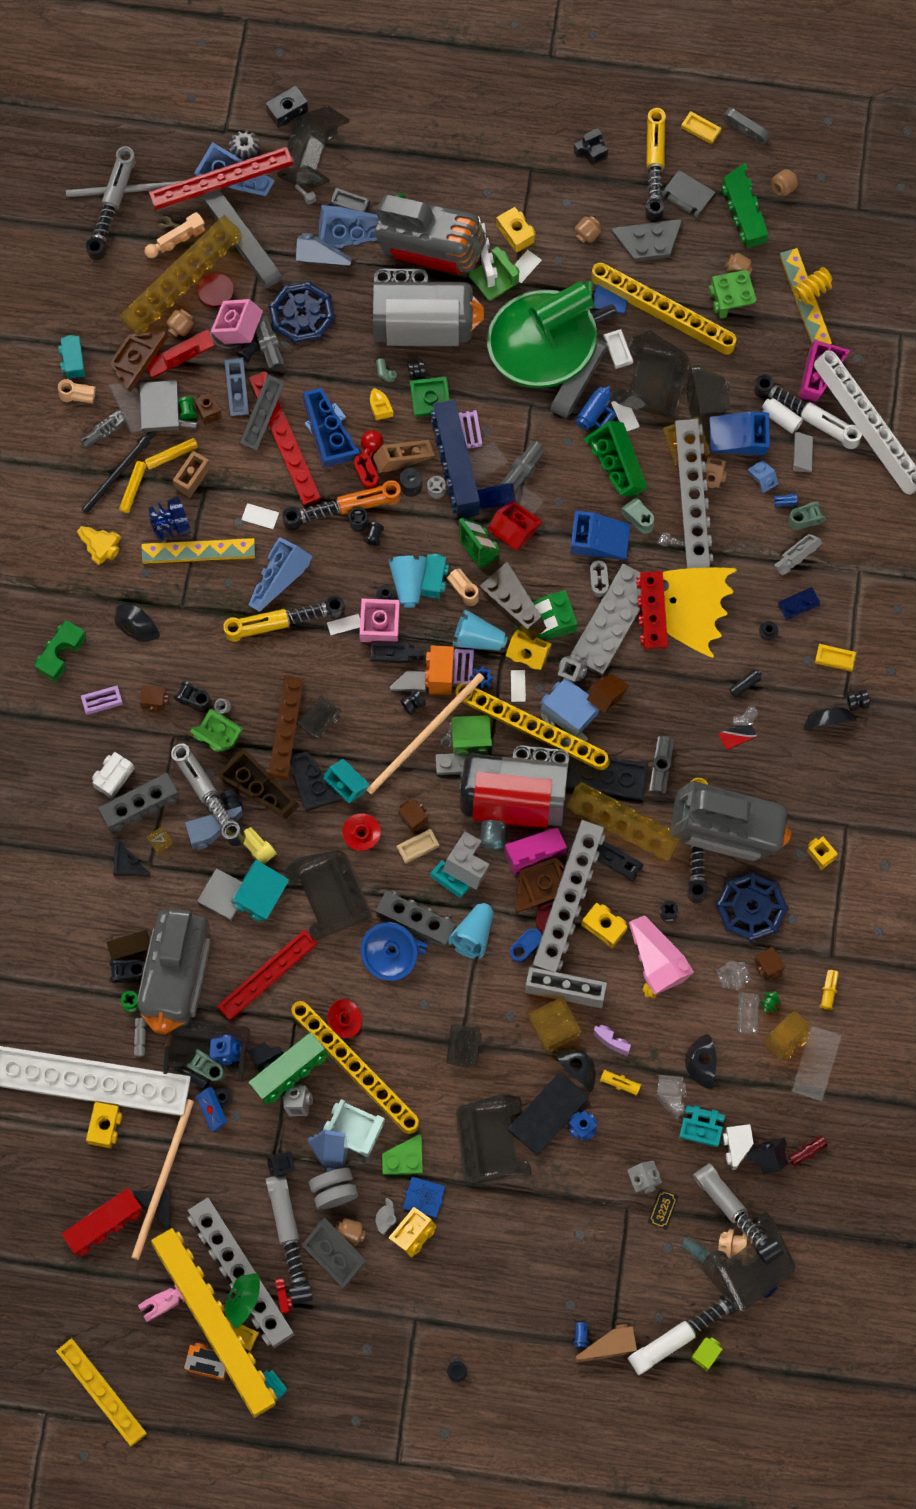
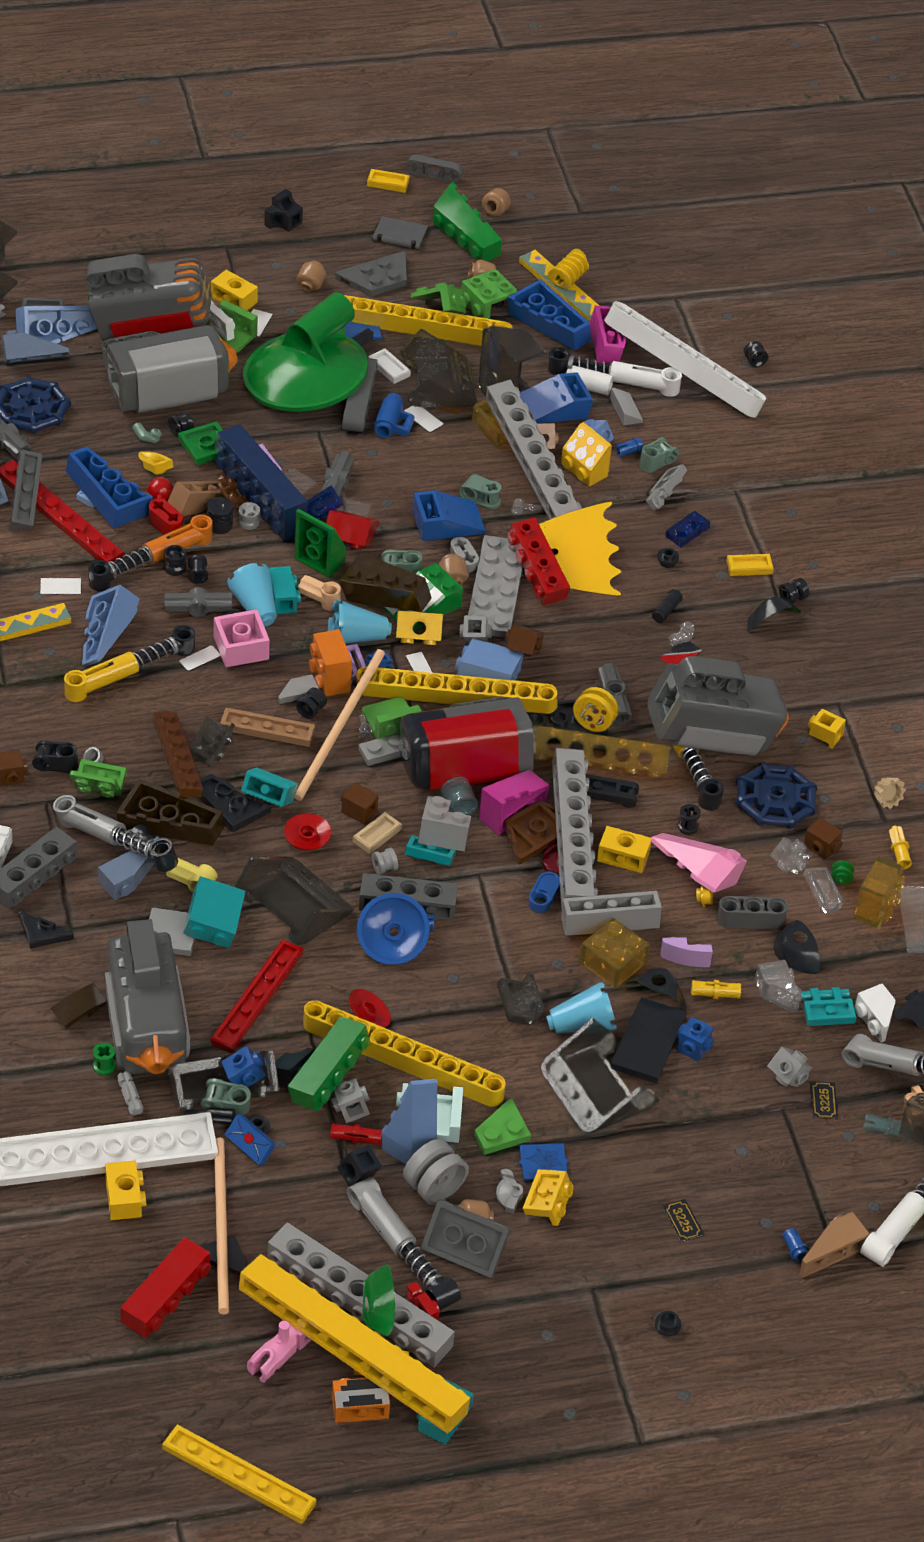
camera: 25 degrees left, 25 degrees down
(123, 971) = (89, 1030): black piece -> none
(159, 840) = (71, 899): clear yellow tile -> none
(291, 1128) = (343, 1132): none -> red pin
(361, 569) = (198, 602): none -> dark grey piece
(369, 715) = (268, 727): none -> medium nougat plate
(394, 652) = (270, 665): black hinge -> none
(411, 879) = (384, 861): none -> light grey wheel
(428, 461) = (228, 490): none -> reddish brown dish
(473, 932) = (480, 892): medium azure cone -> none
(506, 1076) = (578, 1010): none -> medium azure cone
(508, 1282) = (683, 1220): none -> black sticker
(537, 575) = (407, 560): none -> sand green piece
(581, 596) = (455, 567): none -> medium nougat head
(618, 458) = (429, 444): green wedge -> none
(634, 784) = (596, 709): none -> yellow head
(655, 163) = (355, 212): piece -> none
(690, 1016) = (752, 912): none -> dark grey beam
(694, 290) = (452, 297): none -> bright green bracket
(740, 505) = (587, 455): none -> yellow slope
(775, 330) = (550, 314): none -> blue wedge
(843, 934) = (889, 792): none -> tan piece

